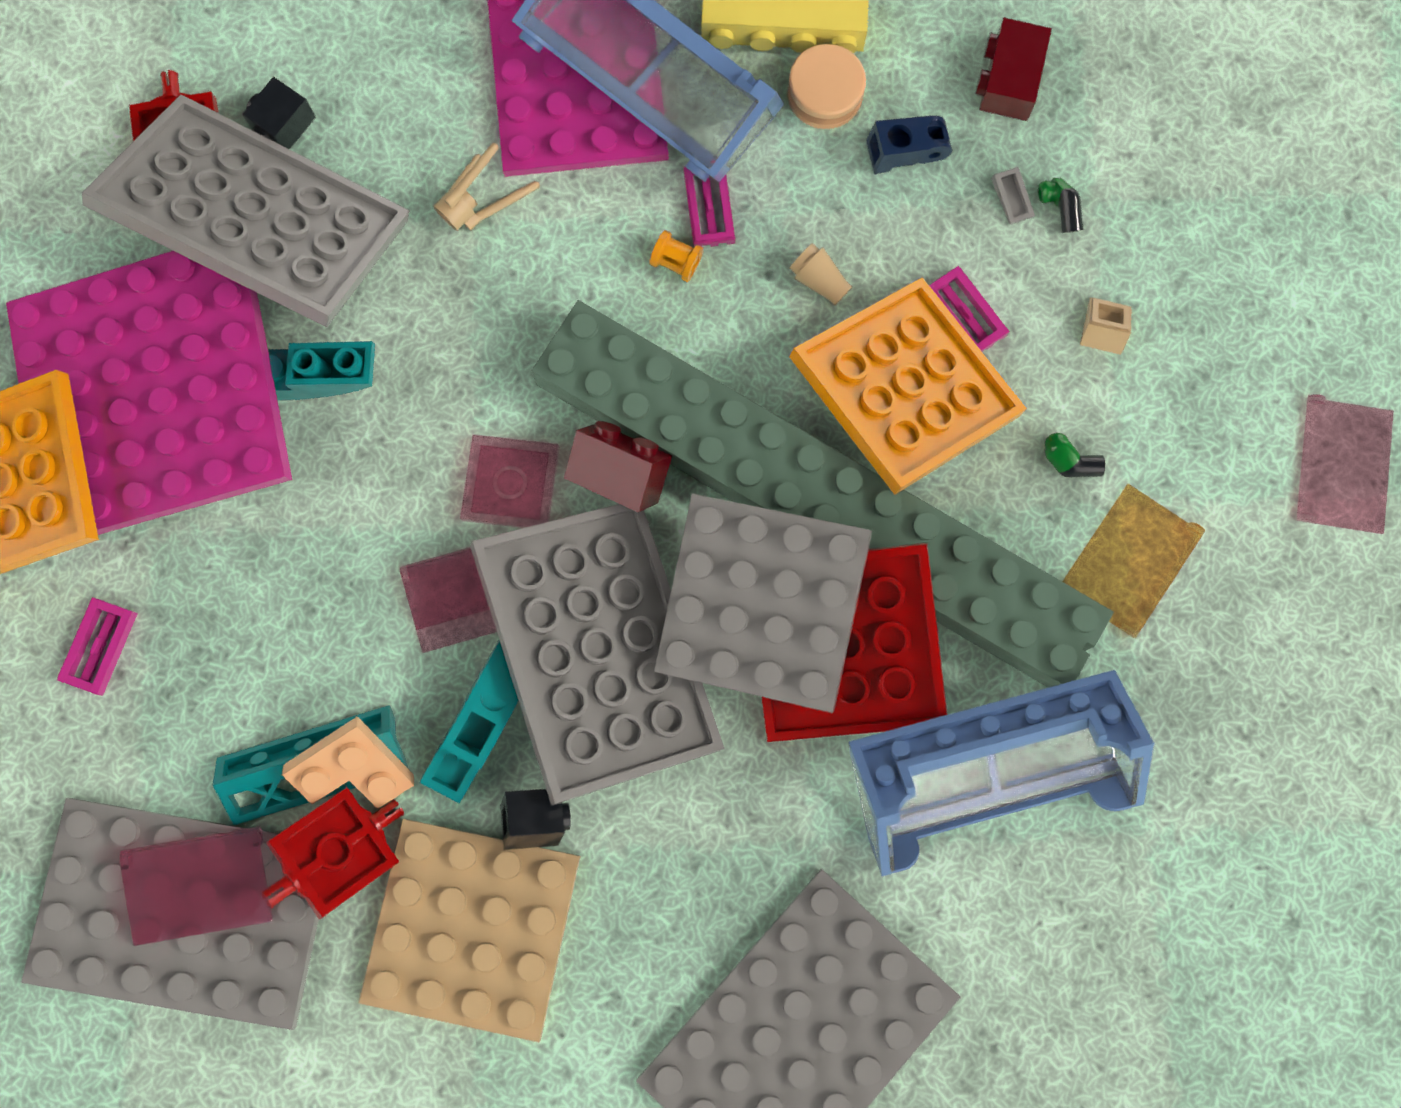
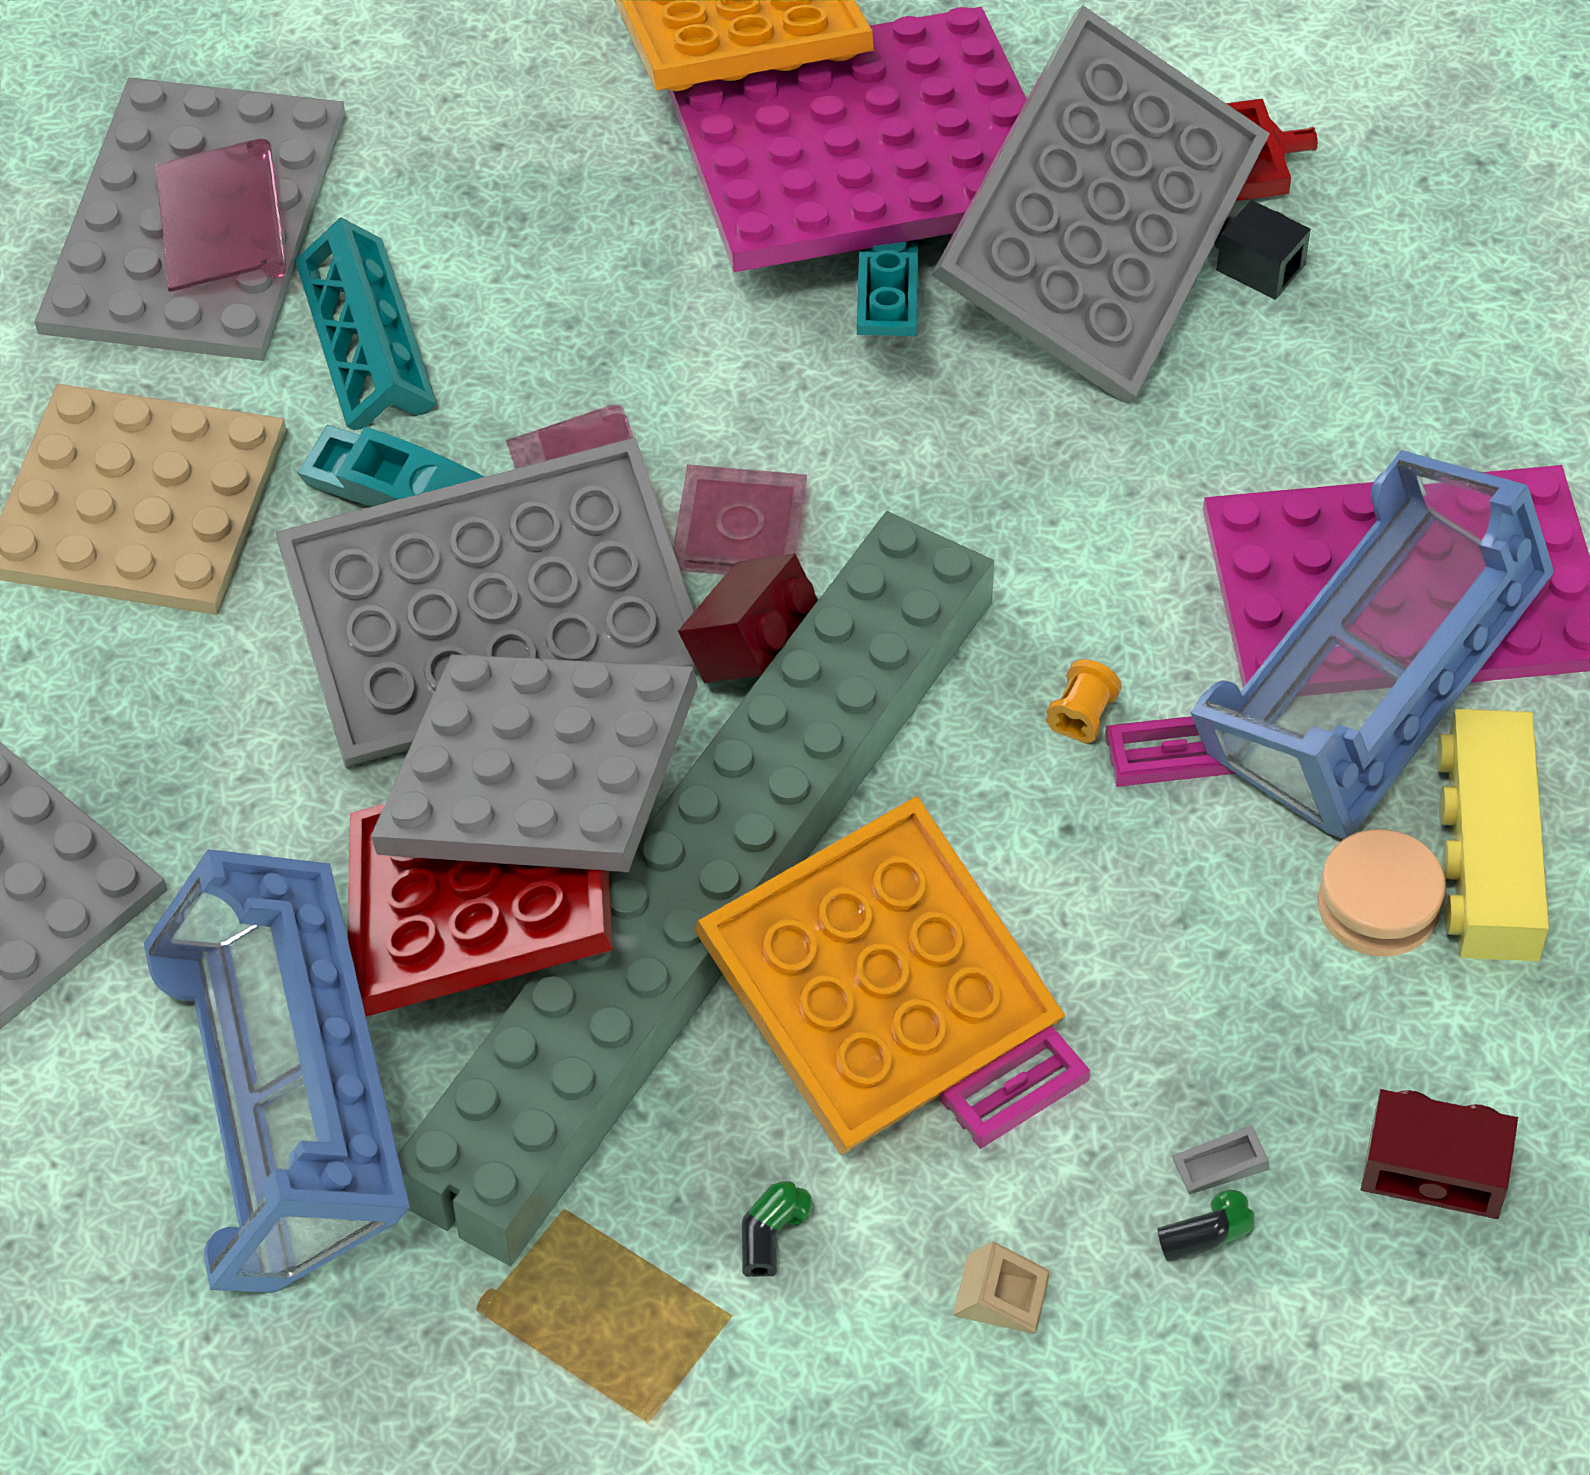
camera: 90 degrees right, 25 degrees down
(113, 651) = (529, 128): dark pink tile -> none
(332, 853) = (244, 338): red plate -> none
(349, 755) = (365, 349): light nougat plate -> none
(458, 205) = (1150, 447): tan plant -> none
(532, 820) = (254, 538): black brick -> none
(819, 273) = (1066, 881): tan cone -> none
(908, 142) = (1293, 999): dark blue leg -> none

